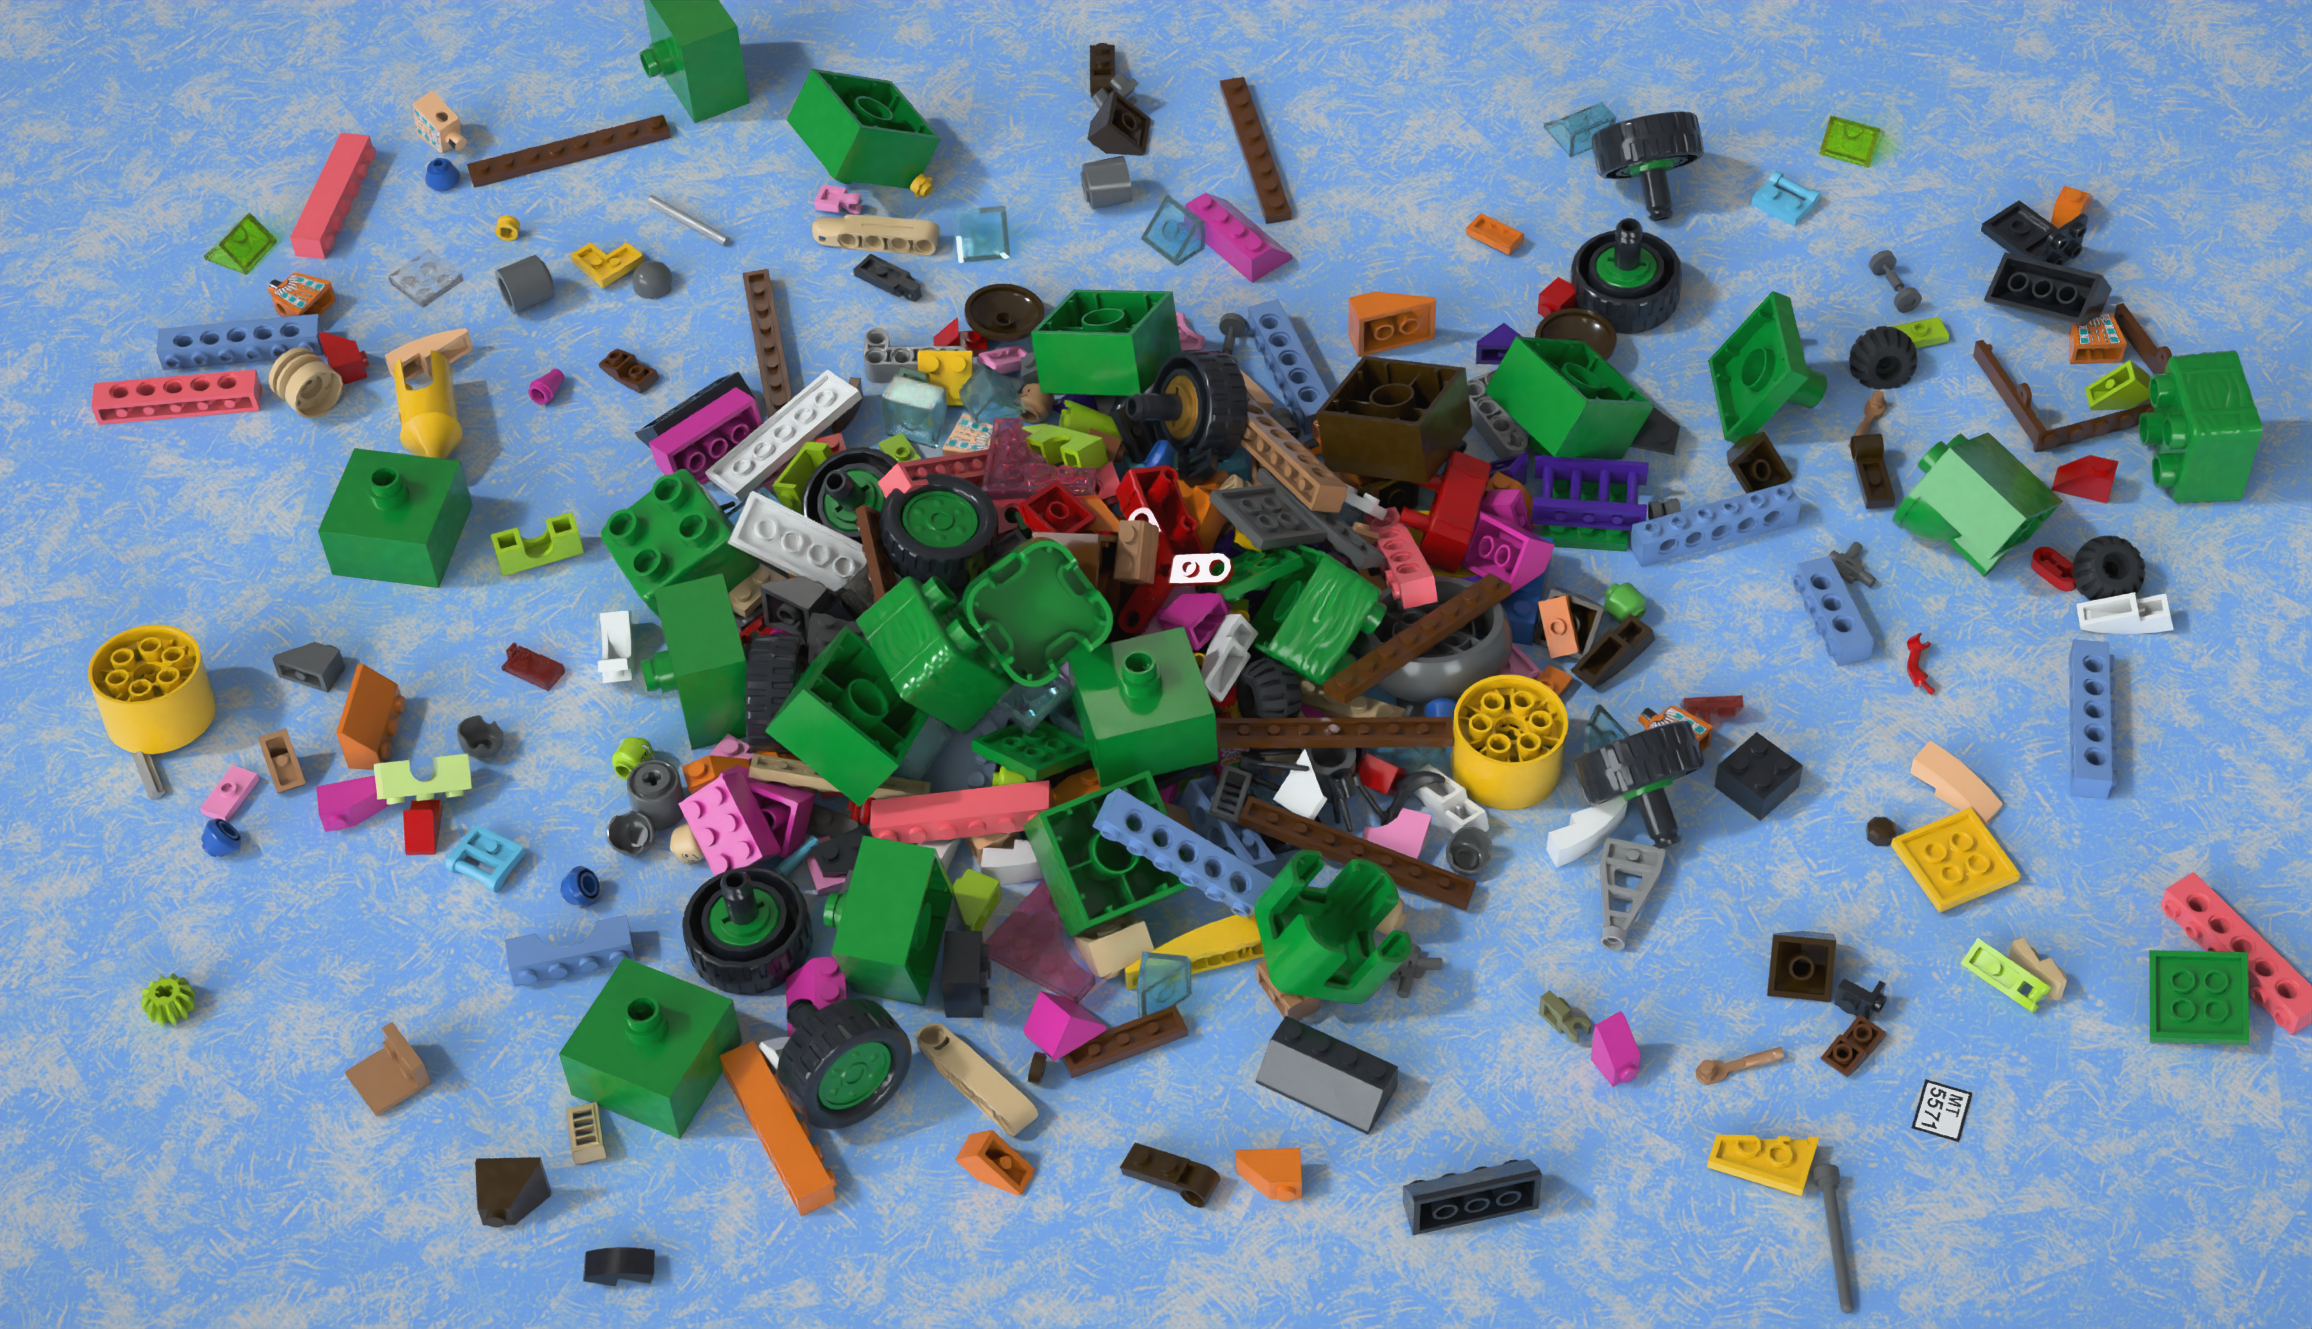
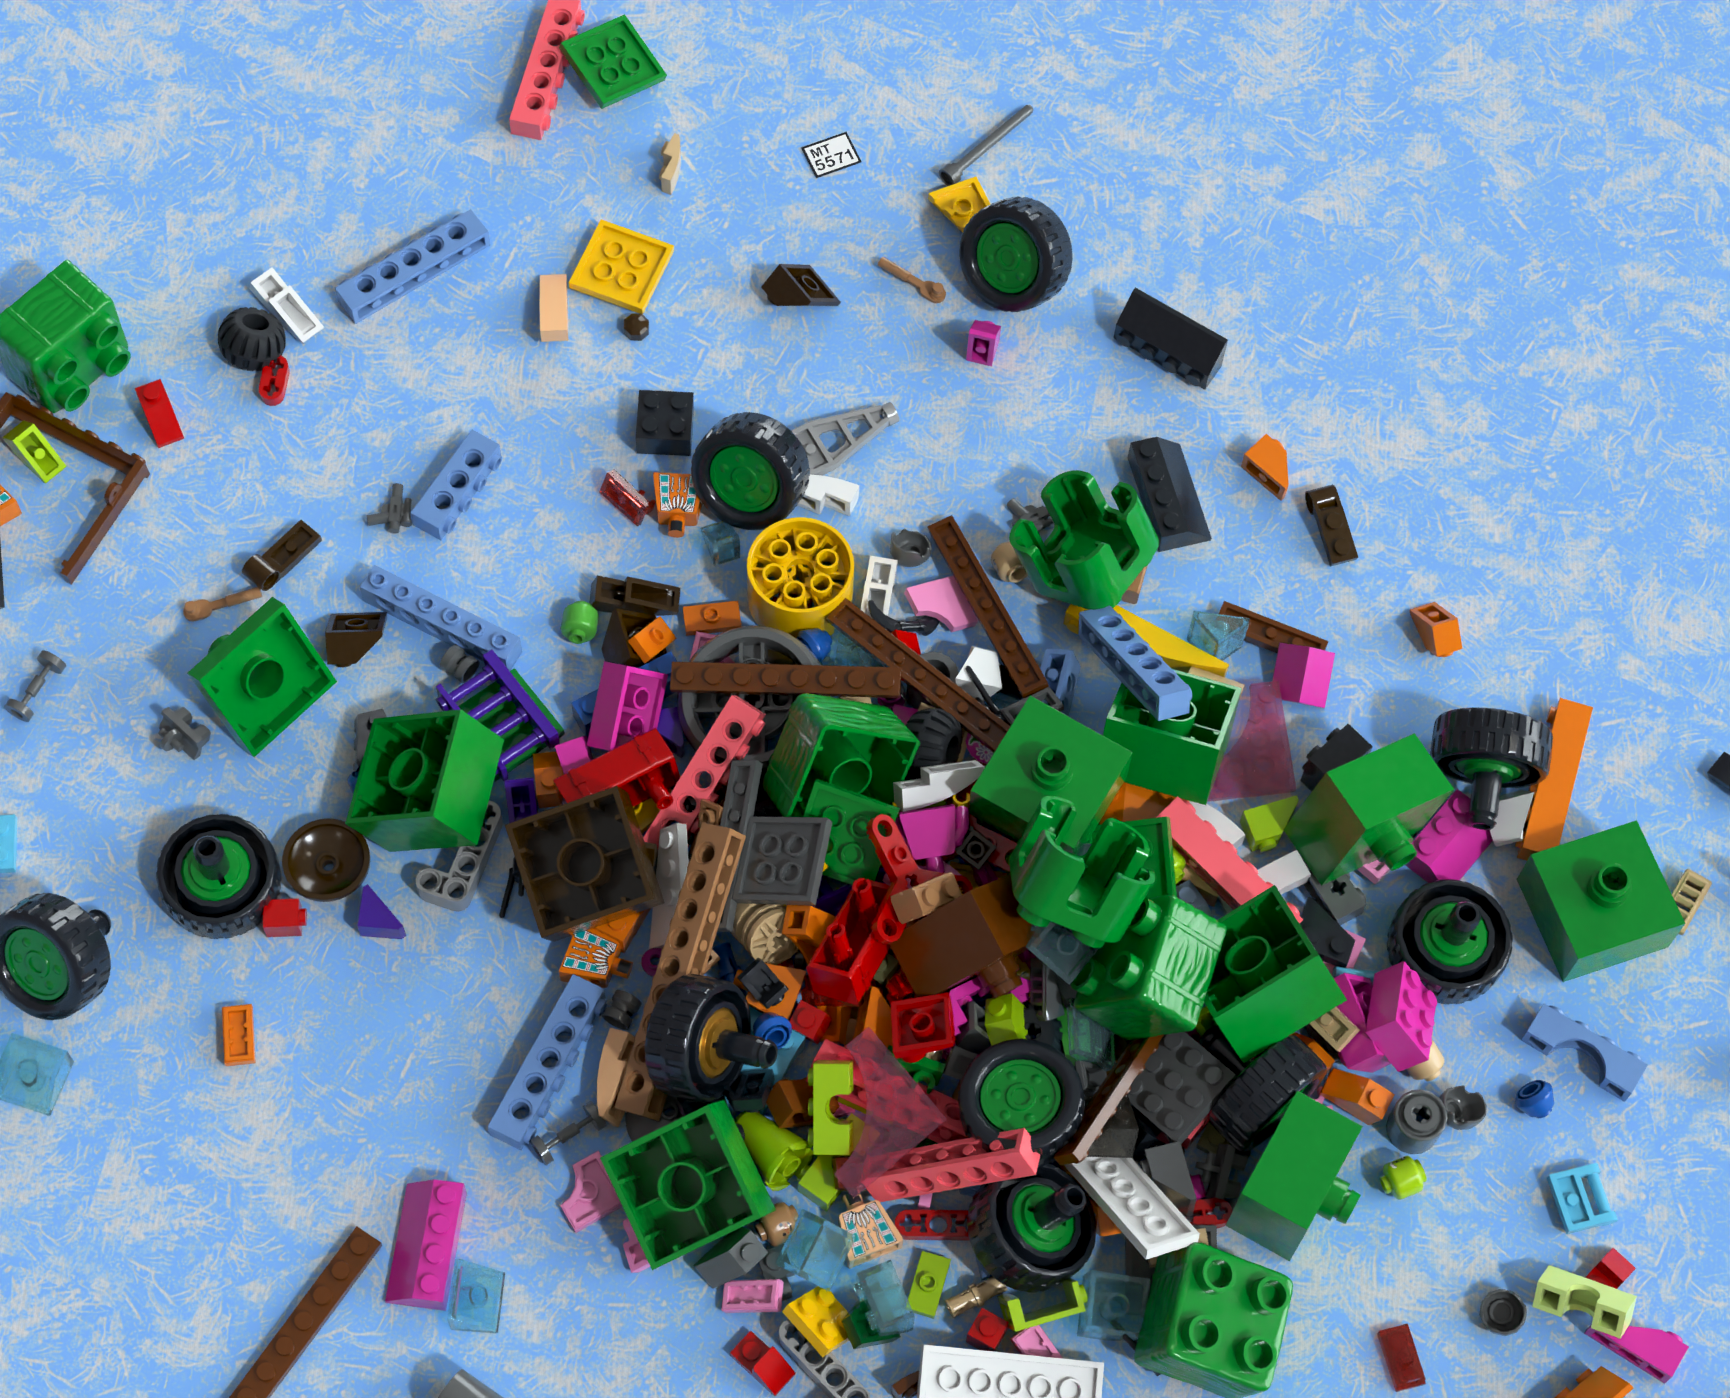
camera: 140 degrees left, 15 degrees up
(617, 646) = (1332, 1292): white arch -> none
(976, 1079) = (1392, 688): tan piece -> none
(1004, 312) = (700, 1322): dark brown dish -> none
(1037, 1068) = (1345, 666): dark brown tile -> none
(1342, 787) = (952, 640): black plant -> none
(1389, 321) = (445, 1021): orange slope -> none
(1558, 1015) = (982, 399): olive plate -> none
(1671, 1119) = (1015, 254): none -> black wheel
(1854, 1046) = (836, 228): reddish brown slope -> none
(1858, 1000) = (795, 235): black bracket -> none
(1883, 358) = (141, 632): black wheel -> none
(1915, 673) = (439, 414): red piece -> none
(1925, 332) = (83, 633): lime plate -> none
(1976, 500) = (277, 435): green piece -> none
(2005, 975) = (695, 177): lime plate -> none

